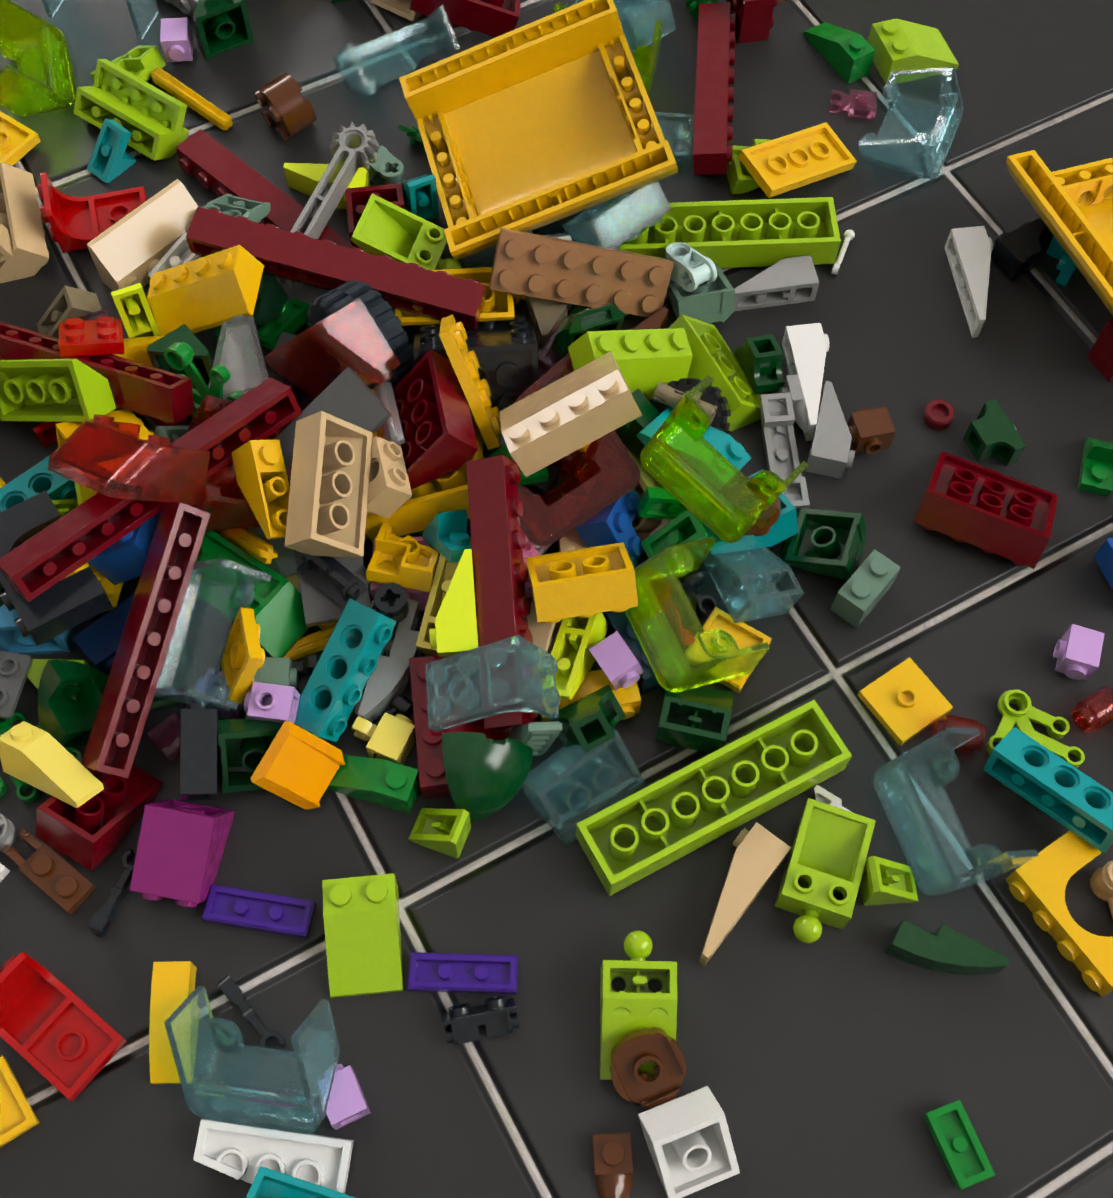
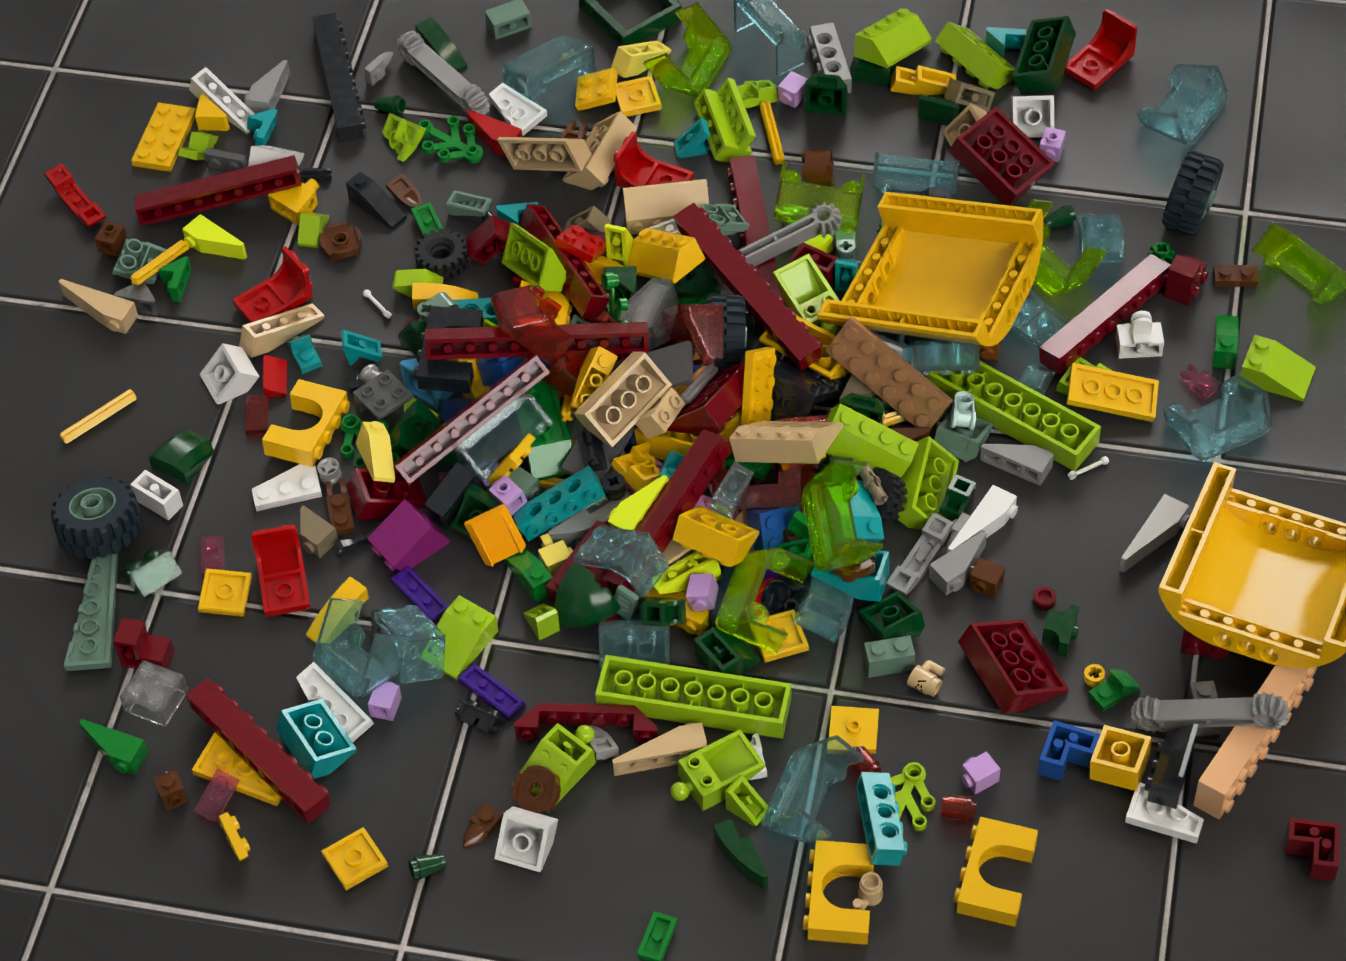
camera: 45 degrees right, 10 degrees down
(47, 931) = (316, 533): none -> dark tan slope
(301, 972) = (425, 646): none -> clear light blue bracket
(303, 144) = (797, 197): none -> clear neon green windscreen
(558, 514) = (731, 490): none -> clear light blue slope
(667, 939) = (603, 745): none -> light grey plate
(686, 879) = (529, 725): none -> dark red slope
(710, 188) = (1037, 377): none -> clear light blue slope
(766, 92) = (1139, 337): none -> white brick
(922, 589) = (924, 680): none -> tan piece
(1070, 455) = (1097, 669): none -> yellow bush

